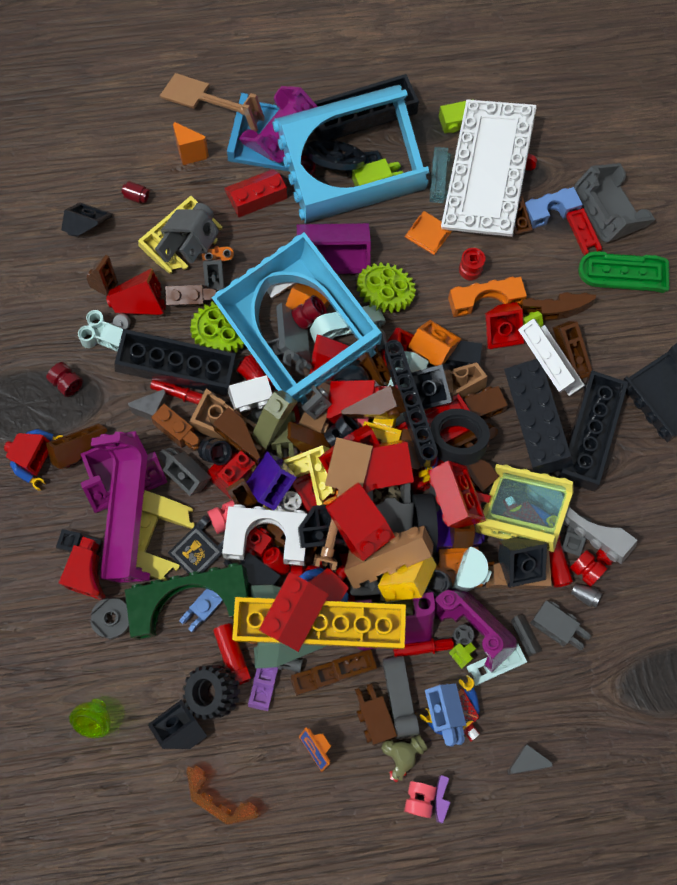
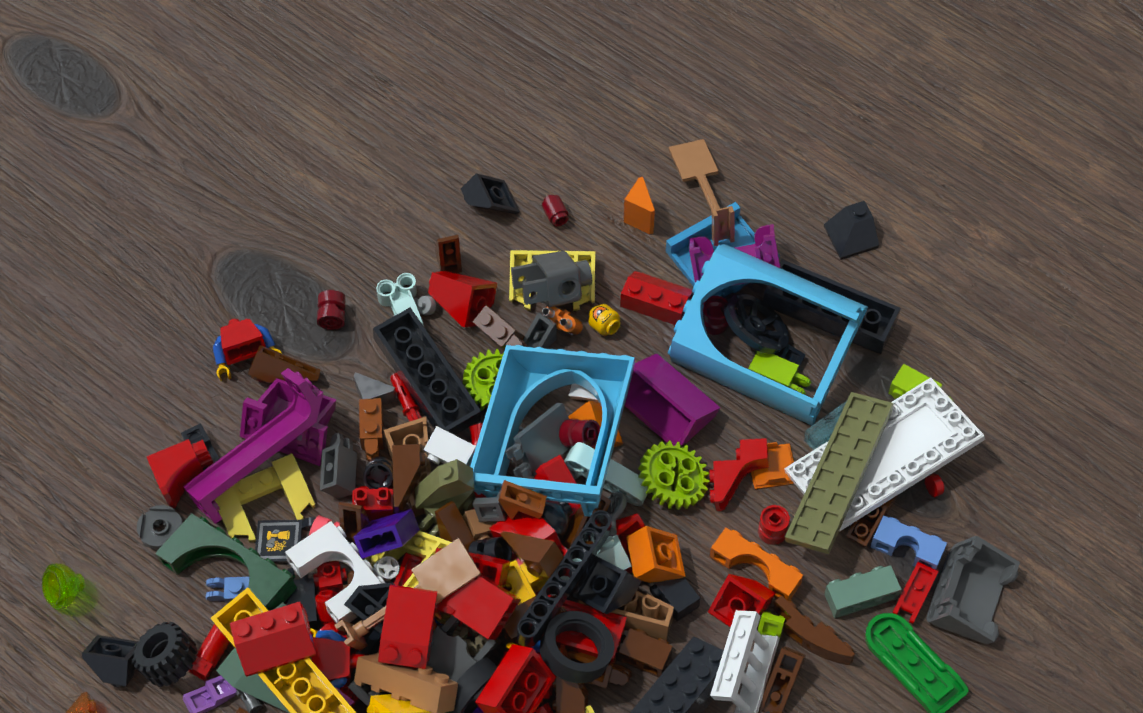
camera: 50 degrees right, 10 degrees down
(241, 232) = (604, 320): none -> yellow head
(323, 54) = (852, 230): none -> black slope
(334, 380) = (517, 498): none -> dark orange slope
(414, 259) = (729, 473): none -> red arch
(482, 198) = (839, 473): none -> olive plate
(556, 256) = (862, 591): none -> sand green brick

